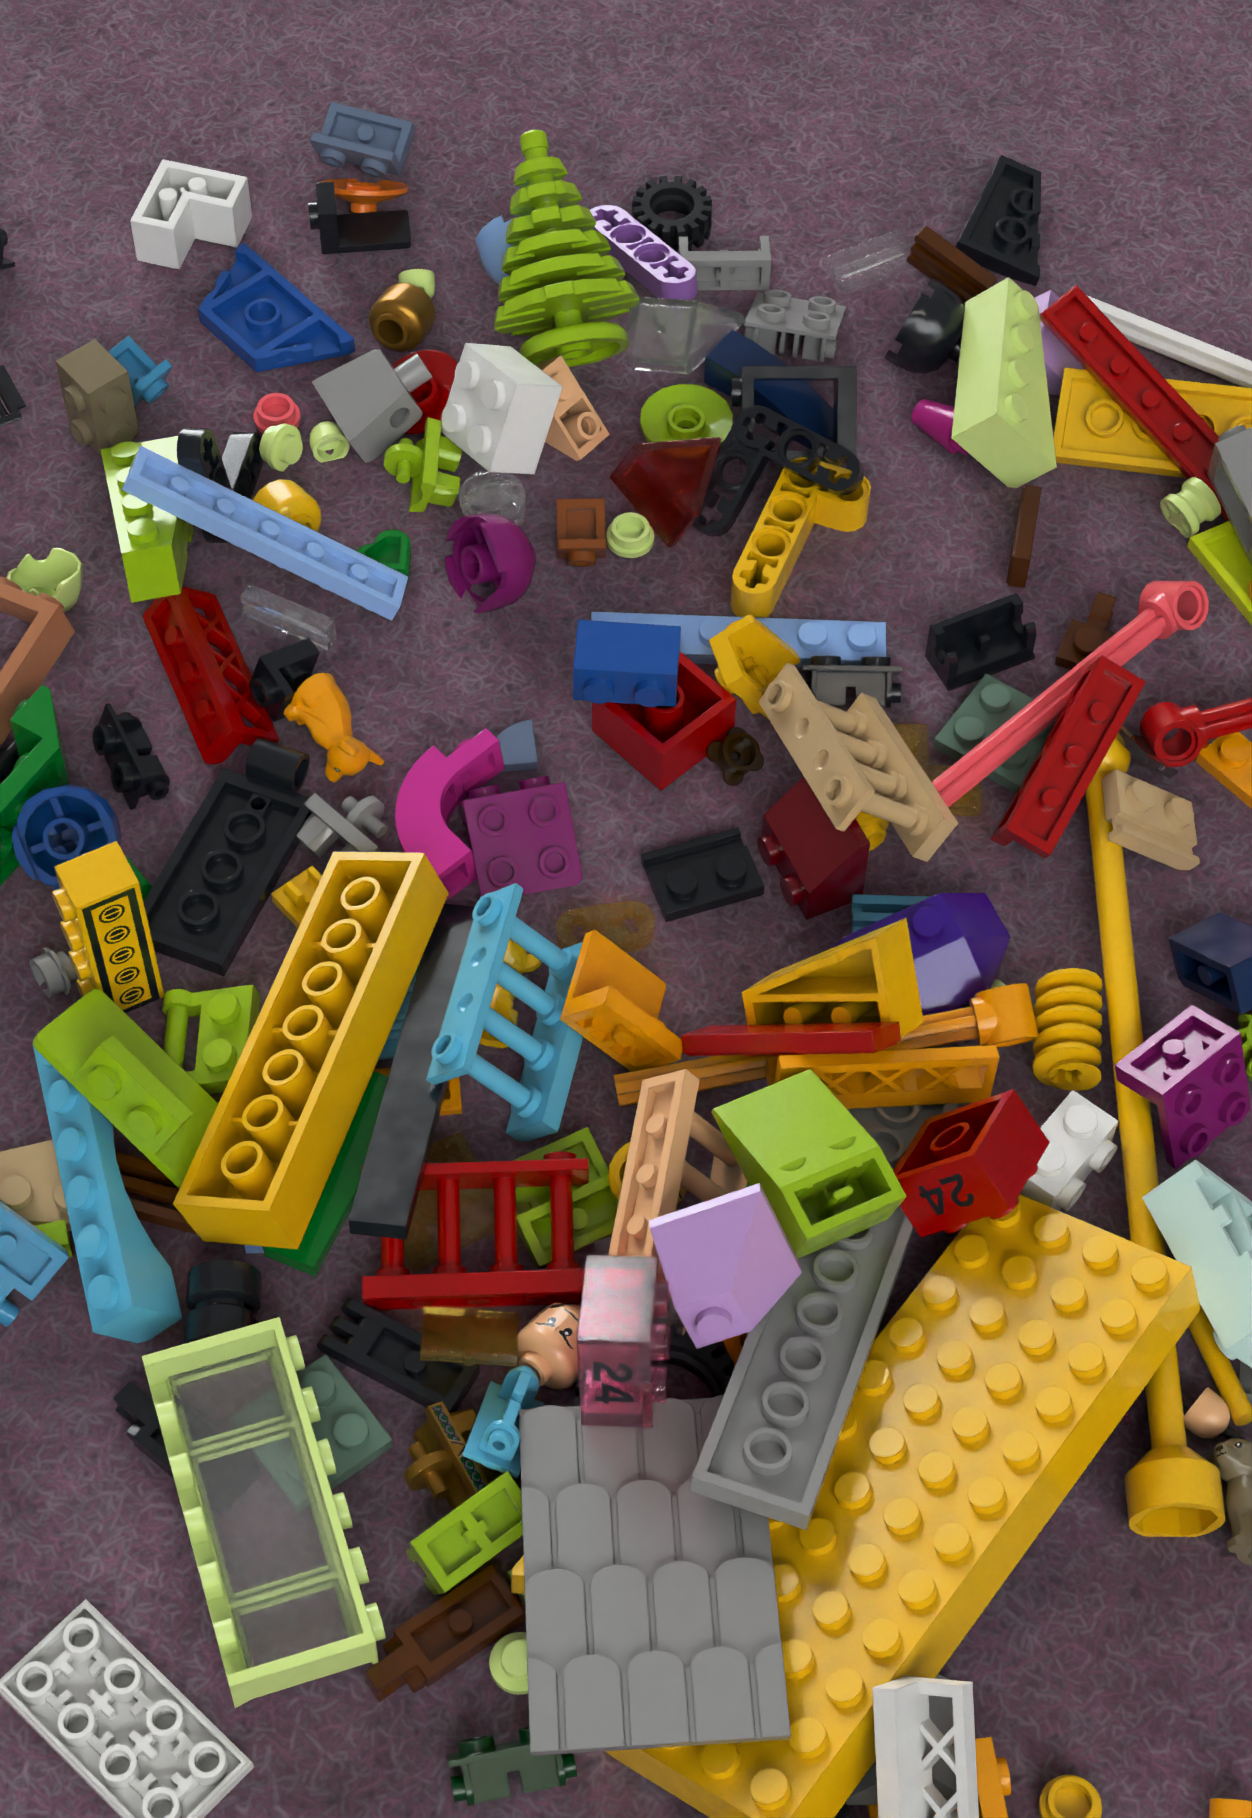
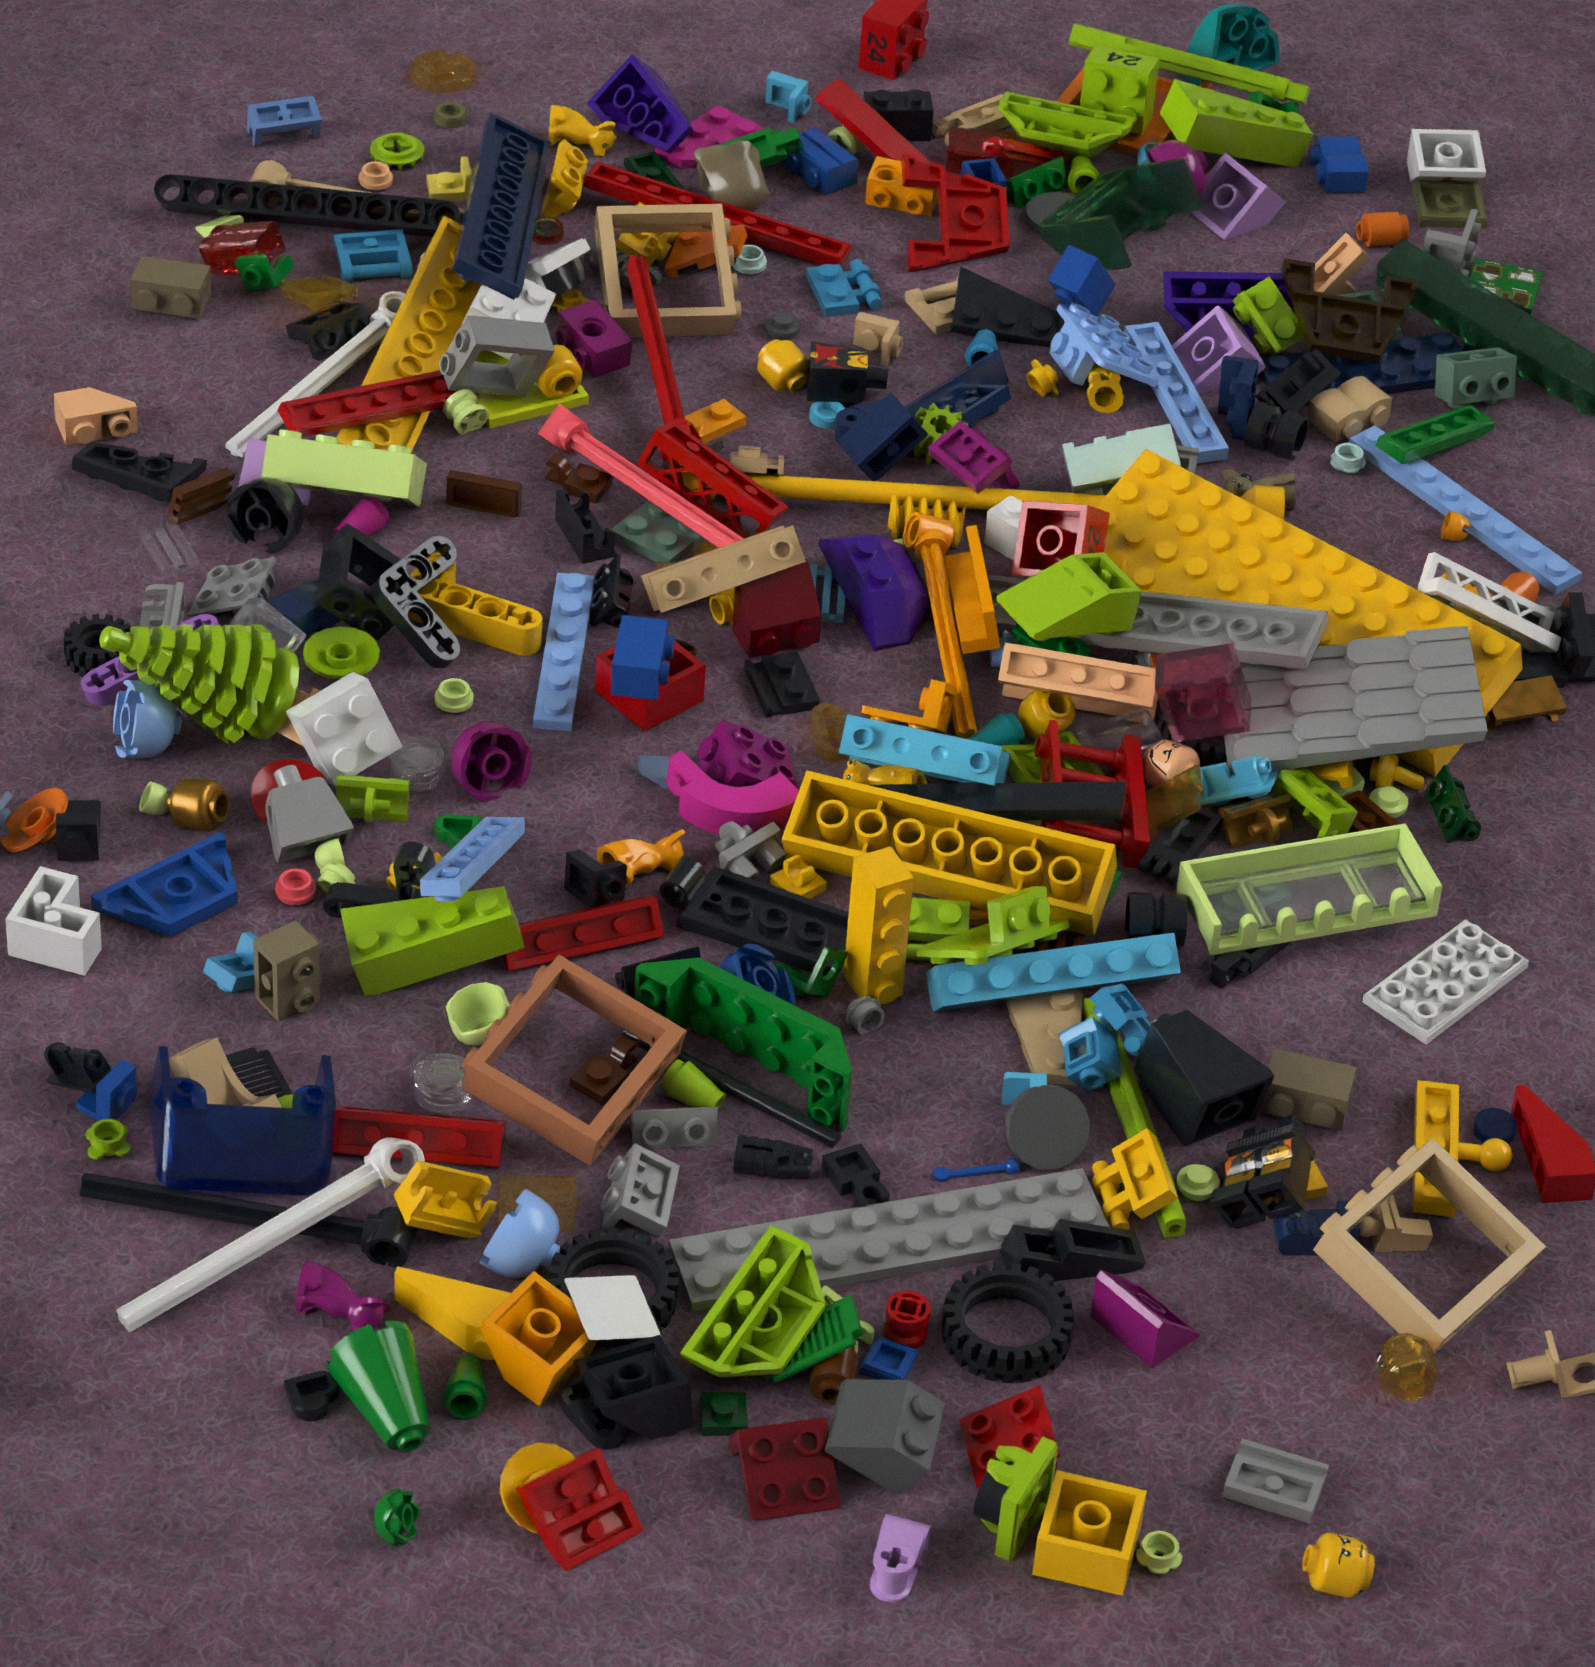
camera: 90 degrees left, 15 degrees down
(288, 620) = (534, 876): clear tile -> none
(581, 531) = (450, 718): dark orange bracket -> none
(606, 1118) = (1001, 731): none -> teal cone
(668, 482) = (428, 653): clear red slope -> none
(724, 1263) = (1150, 629): lavender slope -> none
(750, 659) = (603, 624): yellow bracket -> none
(791, 1039) = (959, 615): red tile -> none
(849, 983) = (921, 593): yellow wedge -> none
(1089, 165) = (93, 415): none -> light nougat slope

